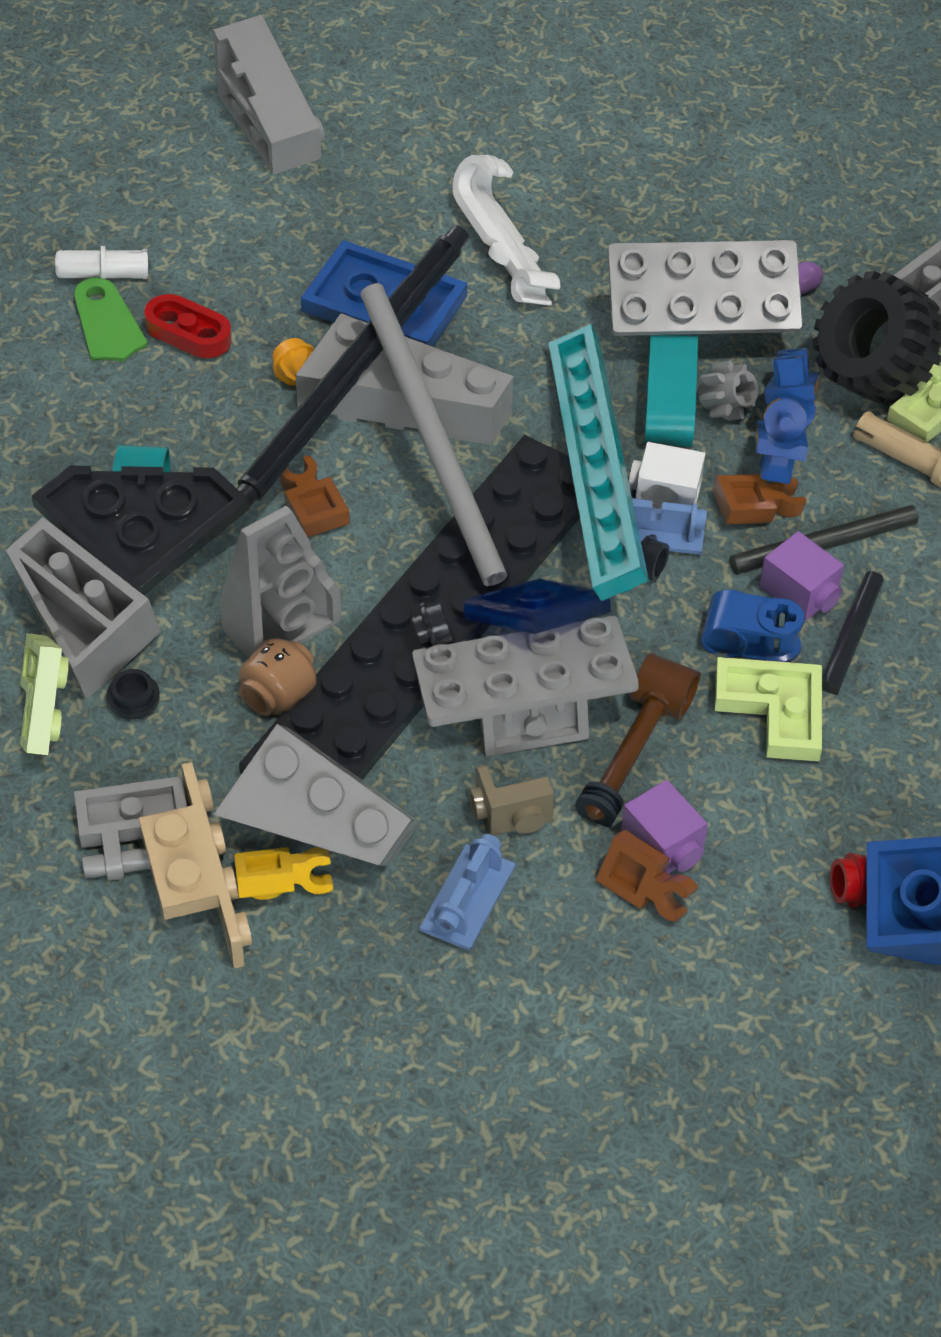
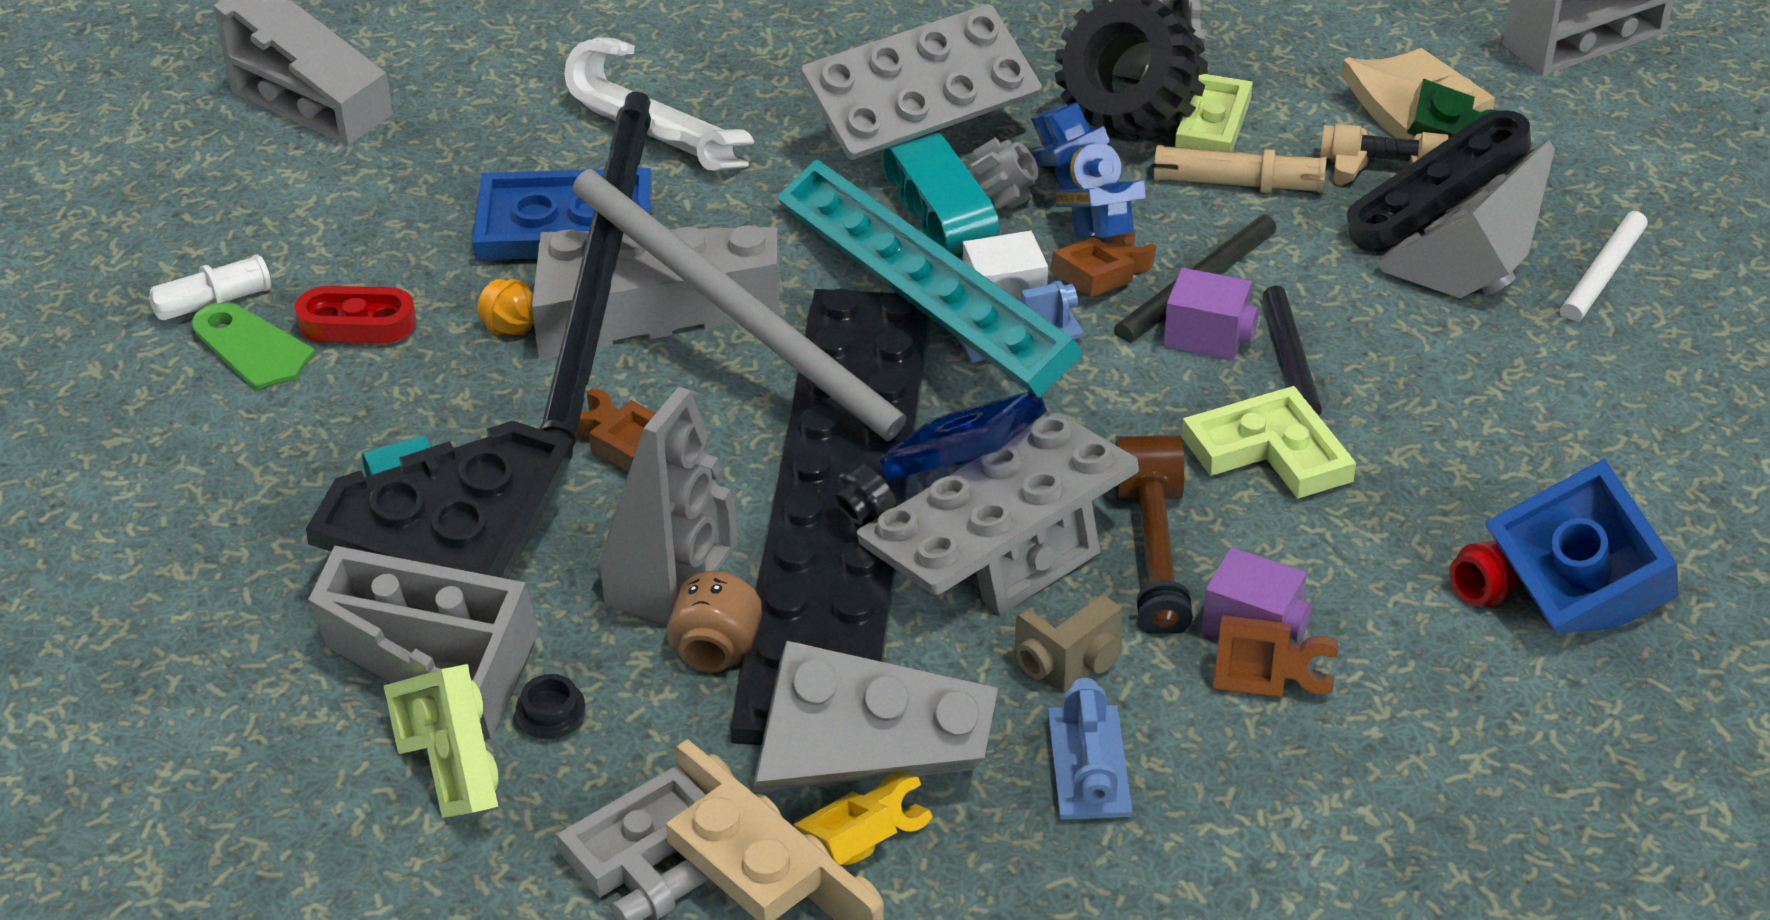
camera: 25 degrees left, 10 degrees down
(749, 624) = (1191, 377): blue piece -> none

